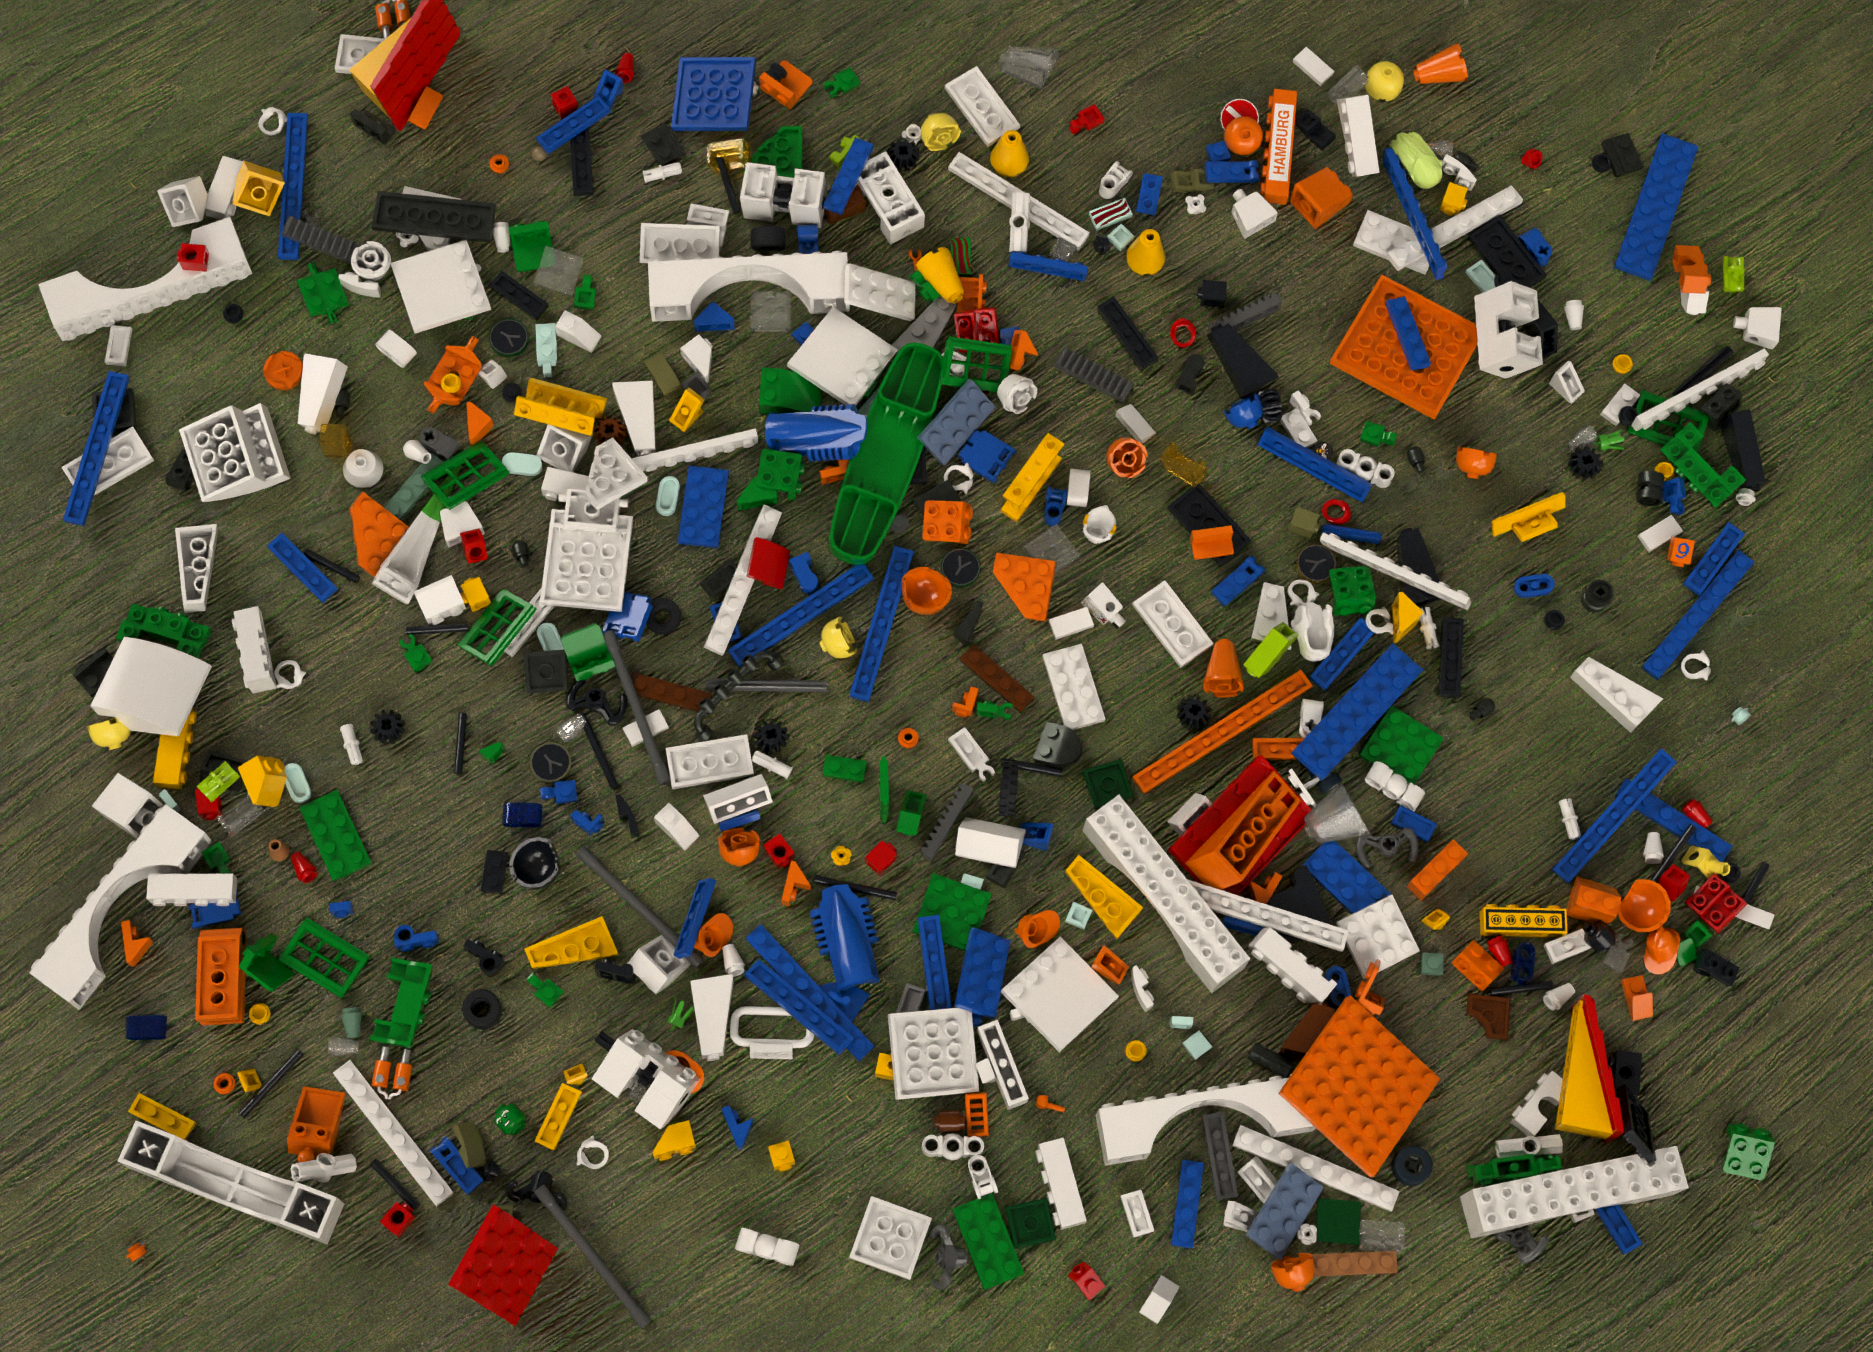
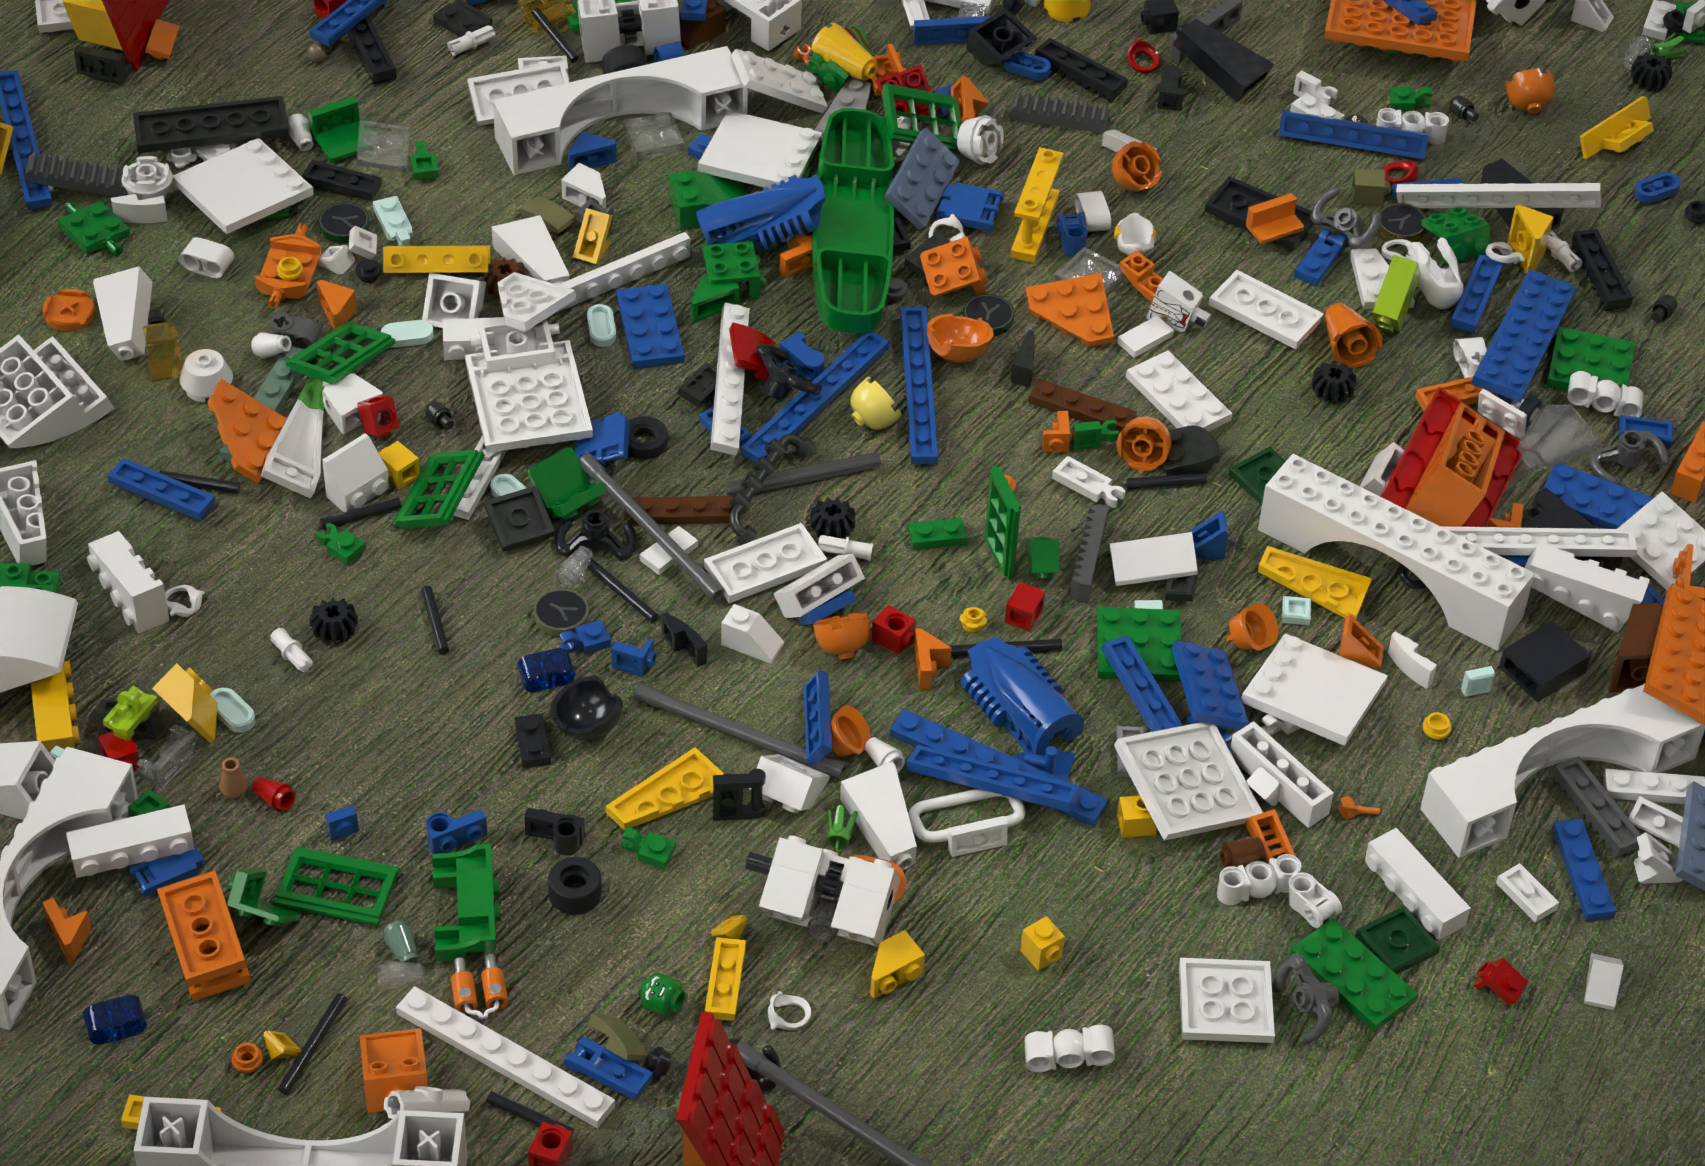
camera: 15 degrees left, 25 degrees down
(259, 1013) = (269, 967): yellow plate -> none
(335, 835) = (304, 752): green plate -> none
(492, 752) = (480, 615): green slope -> none
(499, 168) = (271, 72): orange plate -> none
(515, 366) = (362, 242): none -> white plate
(577, 331) = (426, 196): white slope -> none
(739, 1132) = (969, 932): blue slope -> none
(779, 591) = (782, 375): none -> black piece
(1008, 788) = (1152, 492): black tyre -> none
(1026, 733) = (1144, 443): none -> orange cylinder
(1072, 291) = (998, 38): none -> black slope
(1088, 317) = (1028, 66): none -> blue plate
(1091, 566) = (1141, 274): none -> orange slope
(1182, 466) = (1205, 166): clear yellow panel -> none
(1197, 1045) = (1508, 703): light aqua tile -> none
(1222, 732) = (1379, 392): orange plate -> none
(1239, 1018) = (1544, 661): none -> black brick
(1245, 412) = (1251, 103): blue cylinder -> none
(1267, 560) = (1345, 221): none -> dark grey piece
(1270, 1060) = (1594, 690): pearl dark grey axle -> none
(1271, 405) = (1276, 91): black gear -> none

